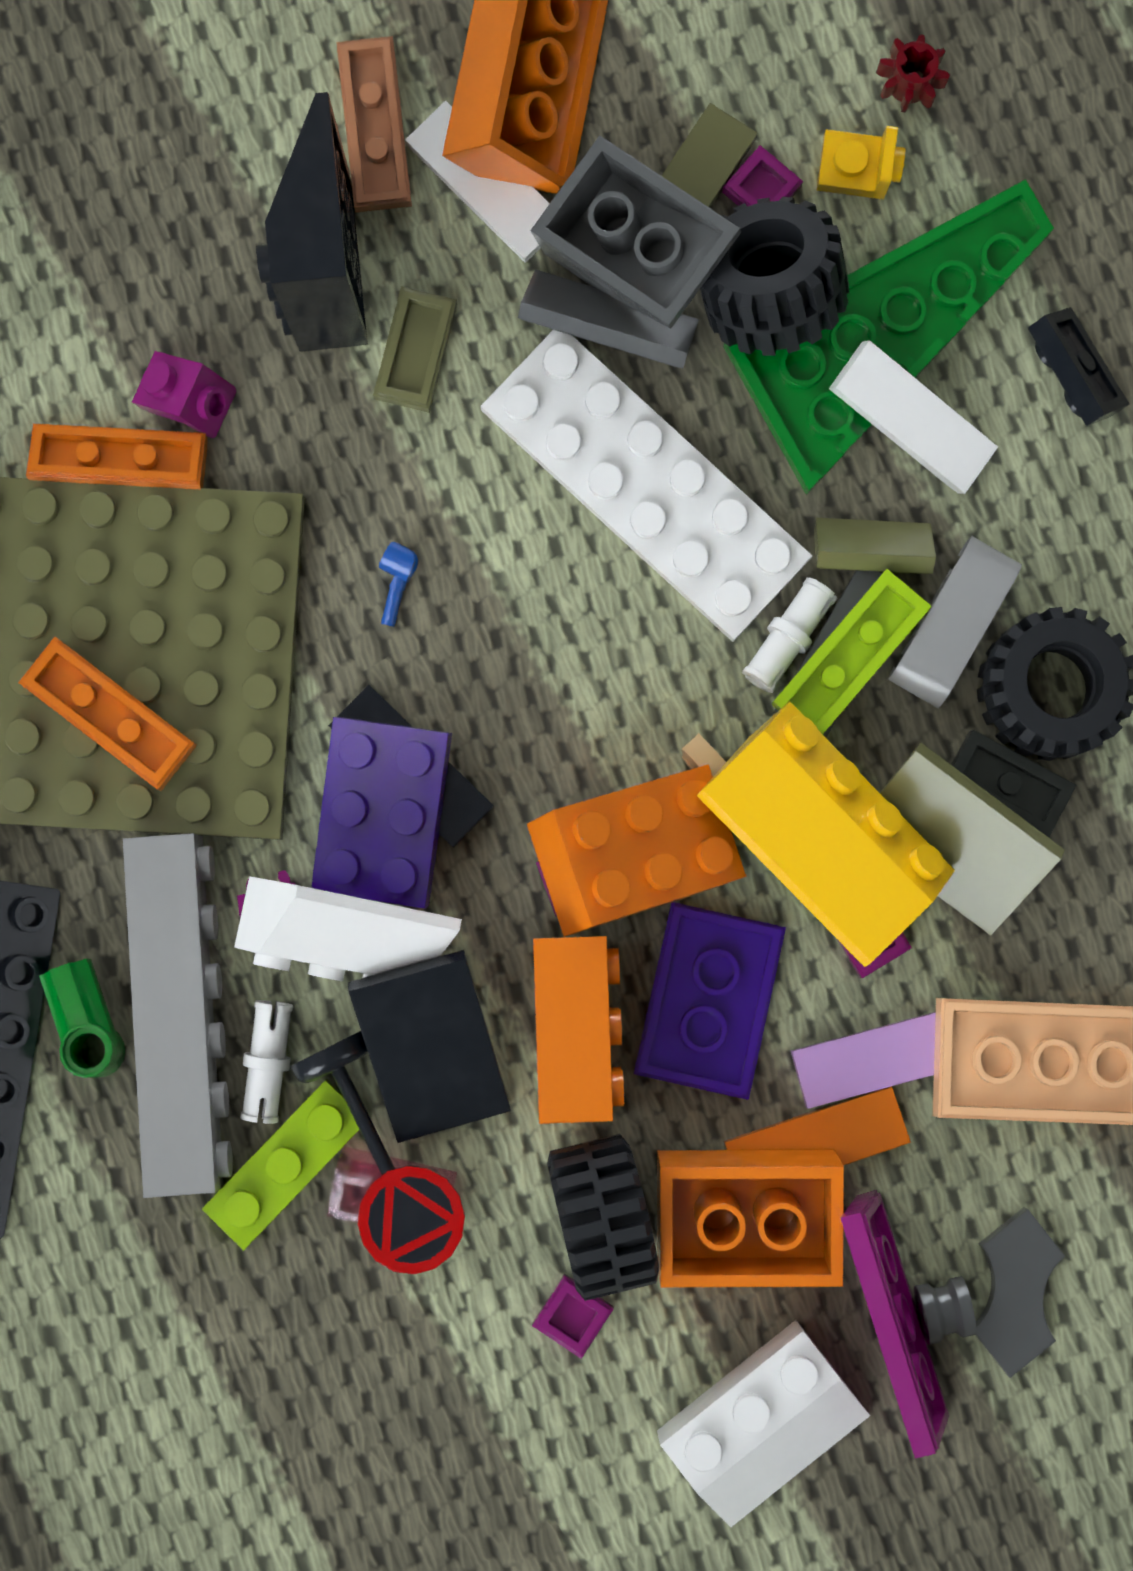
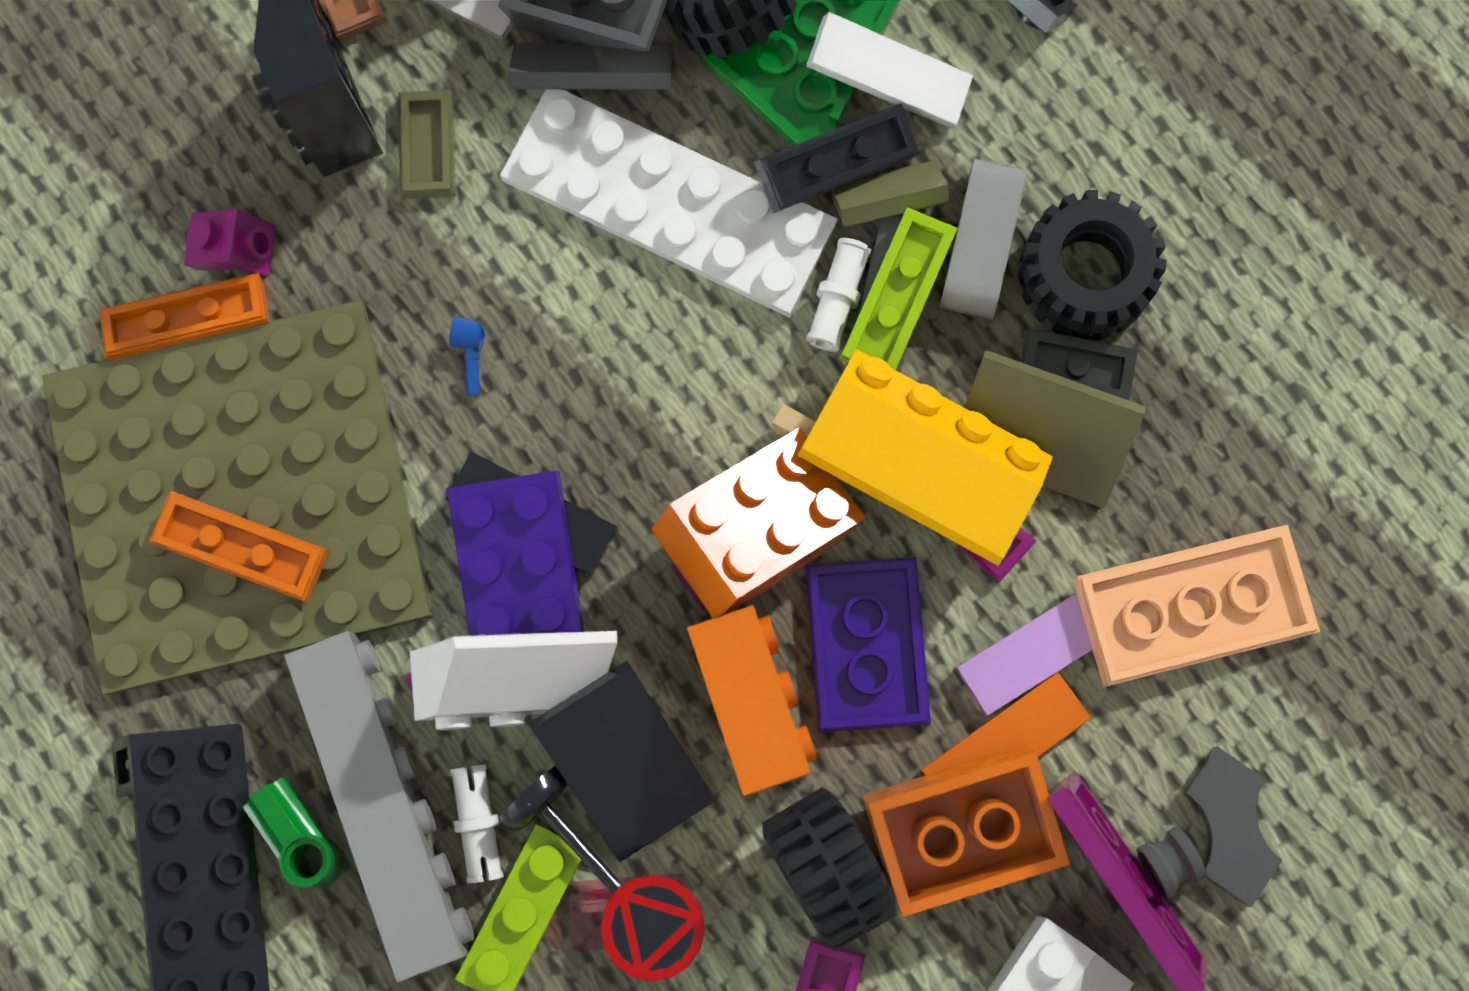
camera: 10 degrees left, 5 degrees down
(831, 493) = (836, 158): none -> black tile

